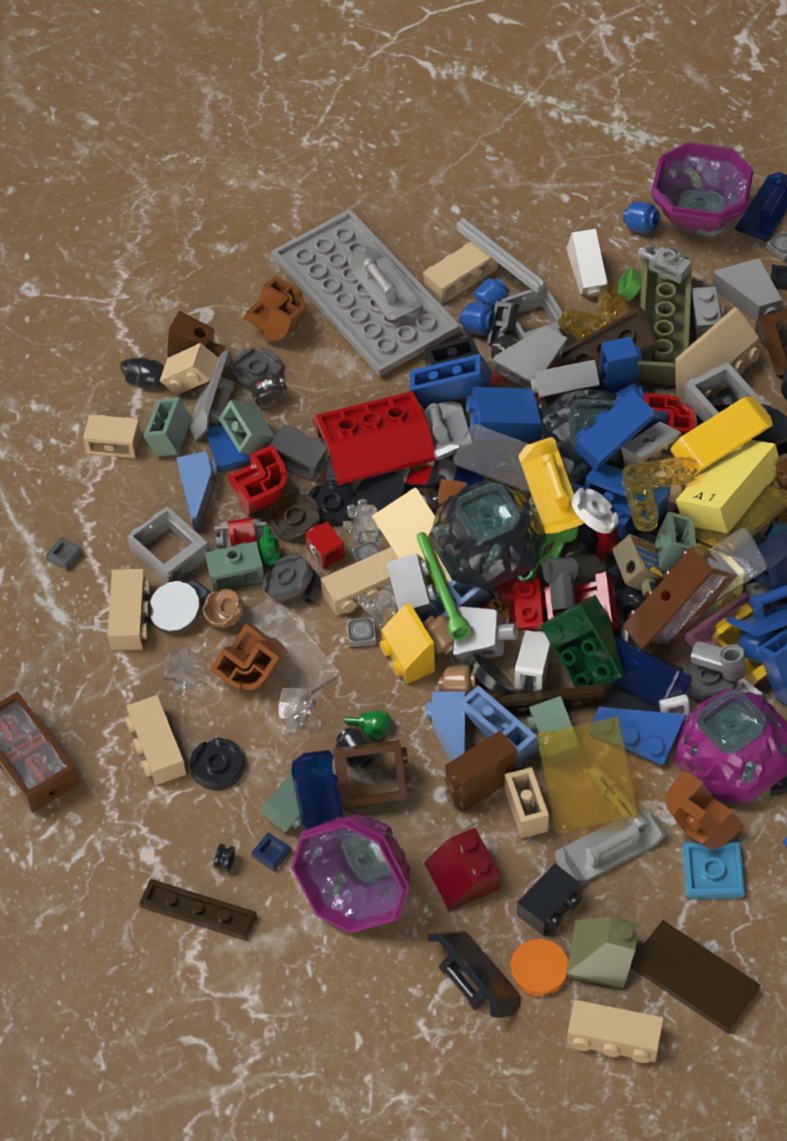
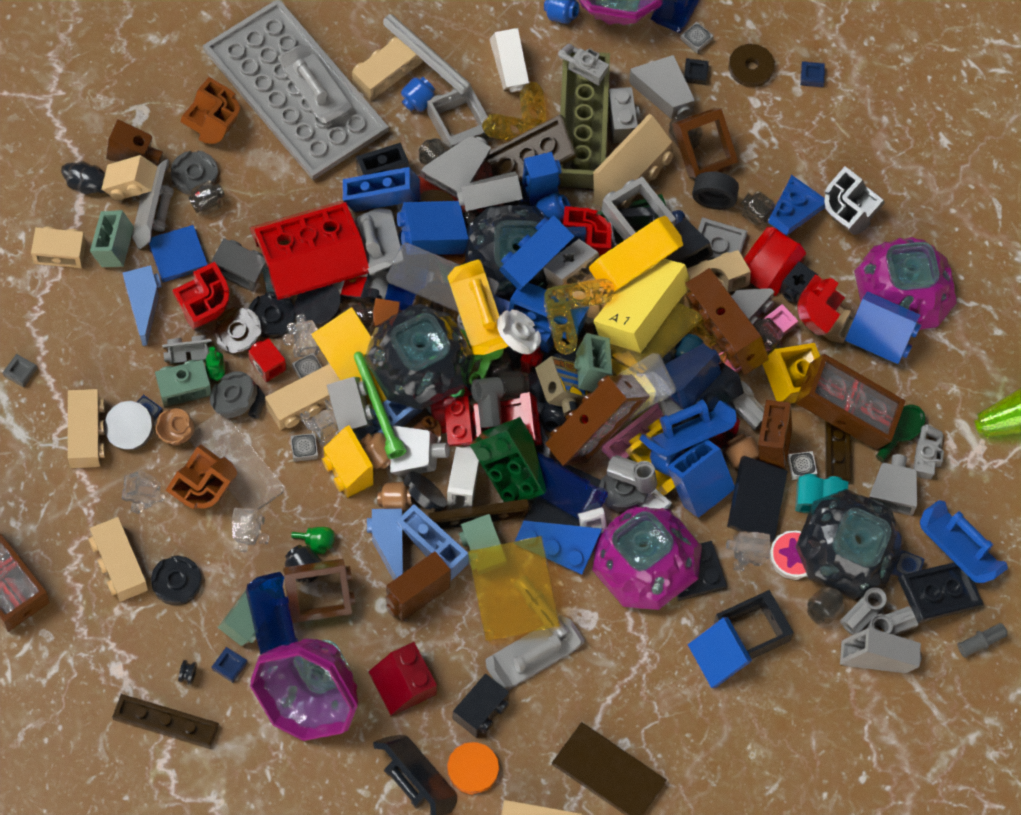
camera: 10 degrees left, 10 degrees up
(184, 561) = (135, 378): light grey window -> none
(241, 531) = (188, 349): red tile -> none
(246, 426) = (188, 241): sand green brick -> none
(476, 318) = (406, 119): blue head -> none
(503, 320) = (429, 124): black tile -> none
(526, 802) = (459, 615): tan brick -> none
(602, 950) = (528, 752): olive slope -> none
(629, 284) = (550, 82): bright green beam -> none
(700, 813) = (615, 623): dark orange brick -> none
(713, 871) = (626, 673): dark azure tile -> none

